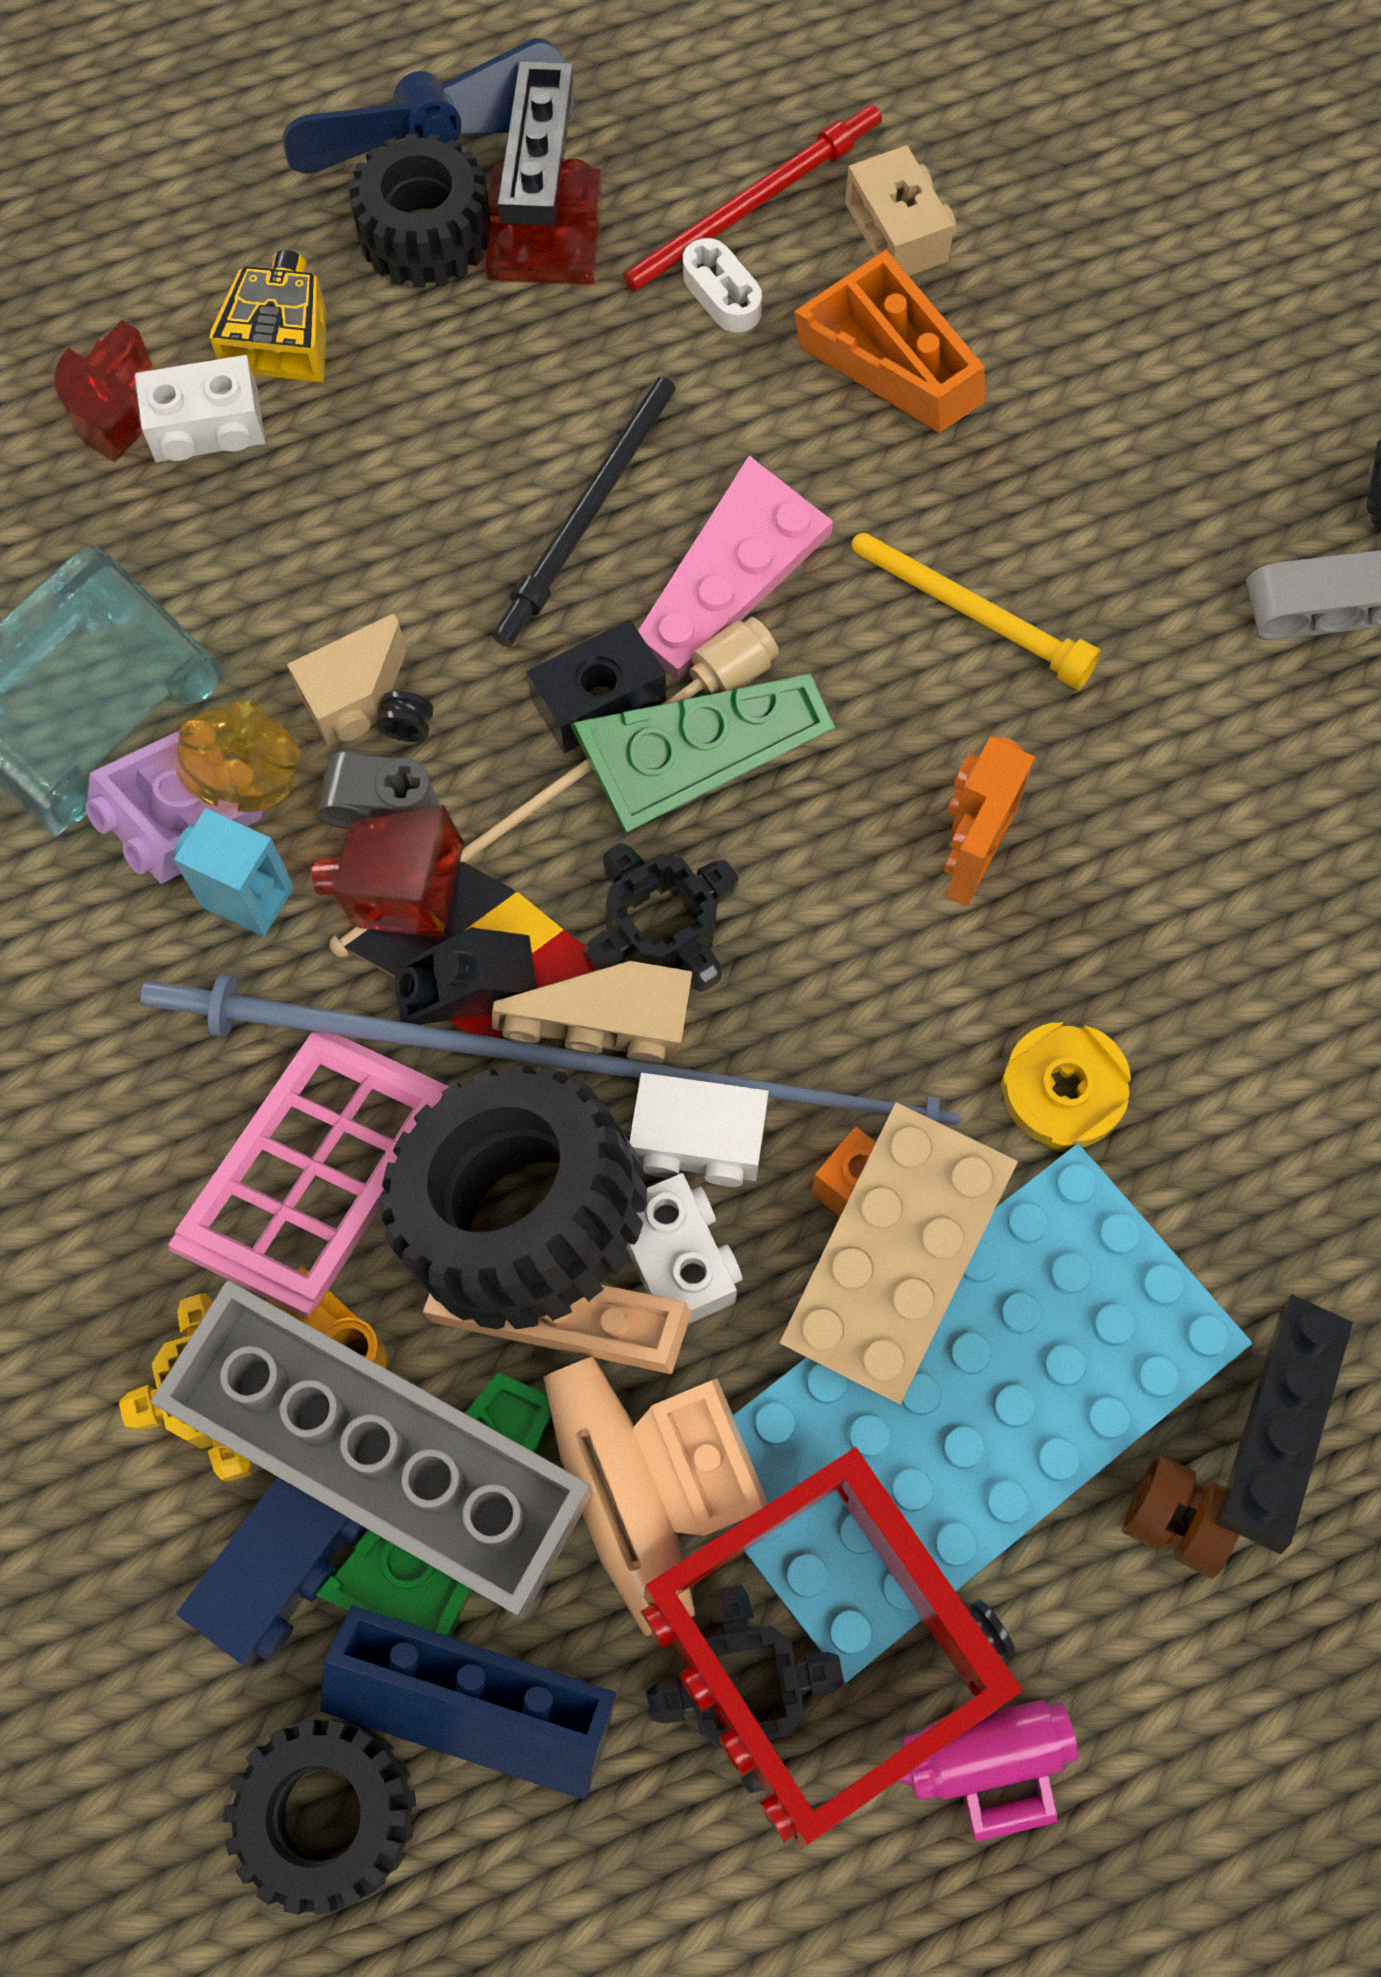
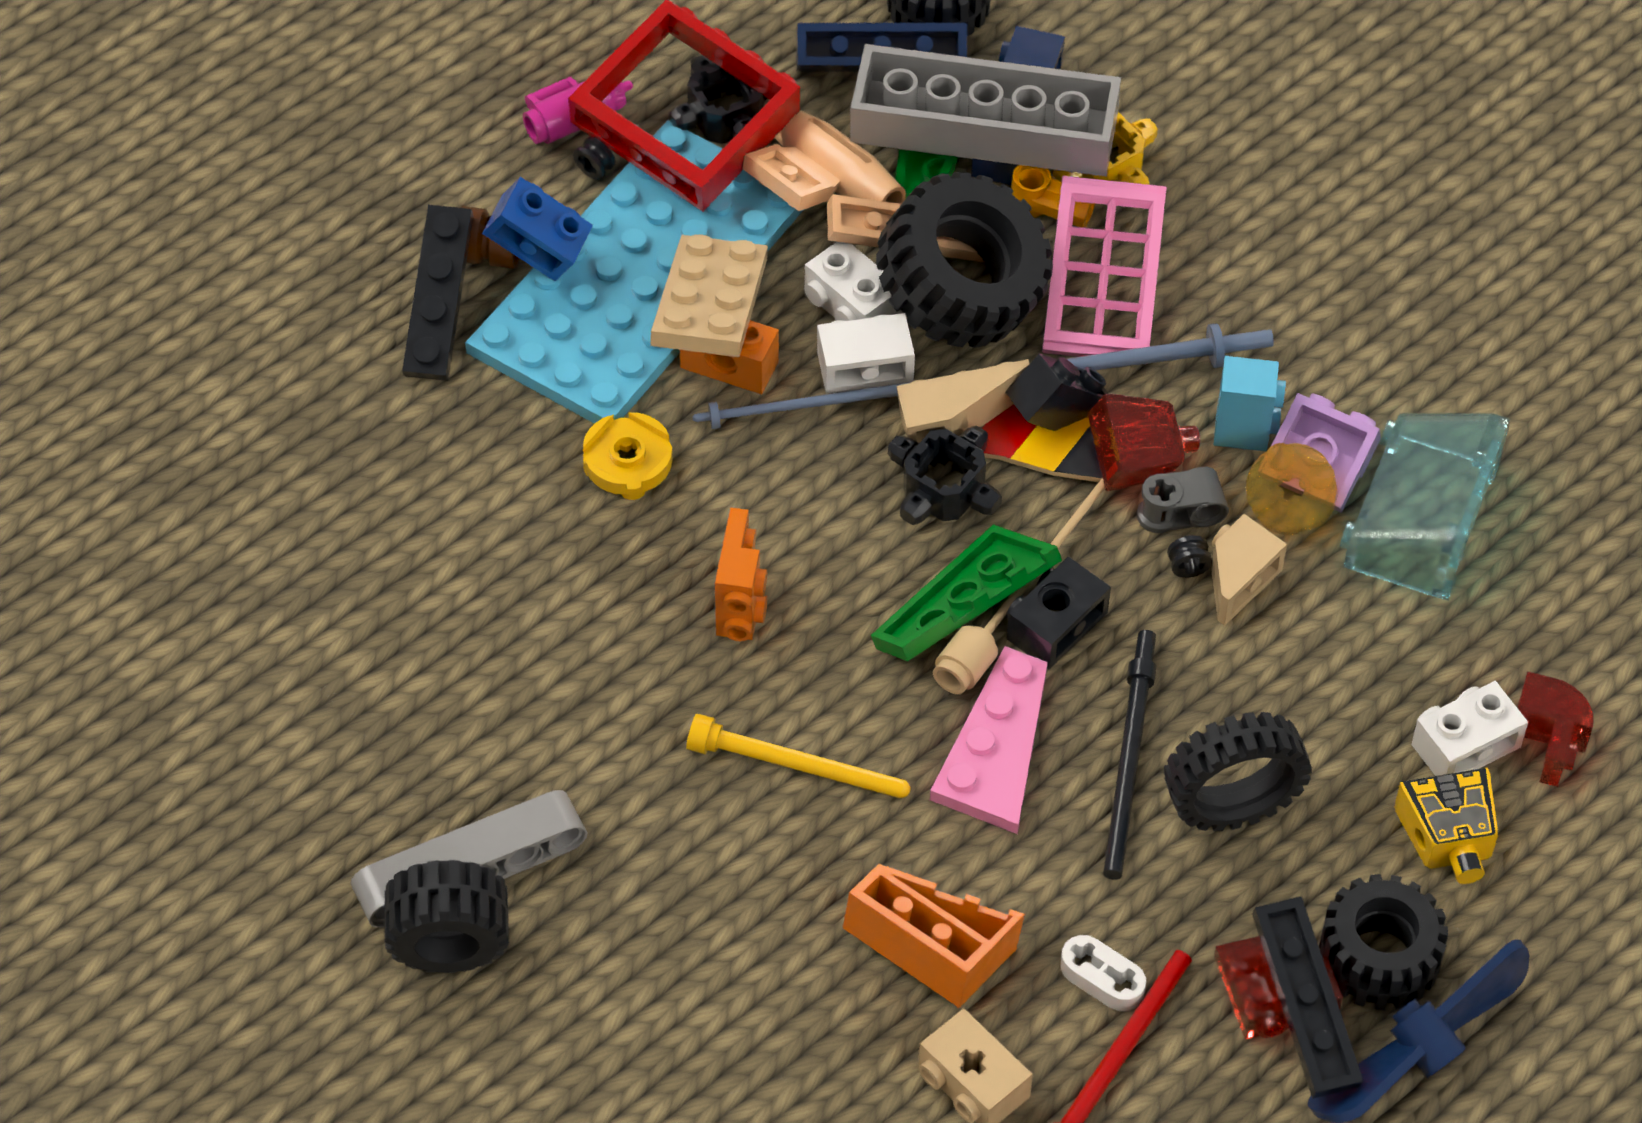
camera: 160 degrees right, 15 degrees down
(501, 344) = (1228, 746): none -> black tyre
(1126, 1451) = (537, 228): none -> blue brick

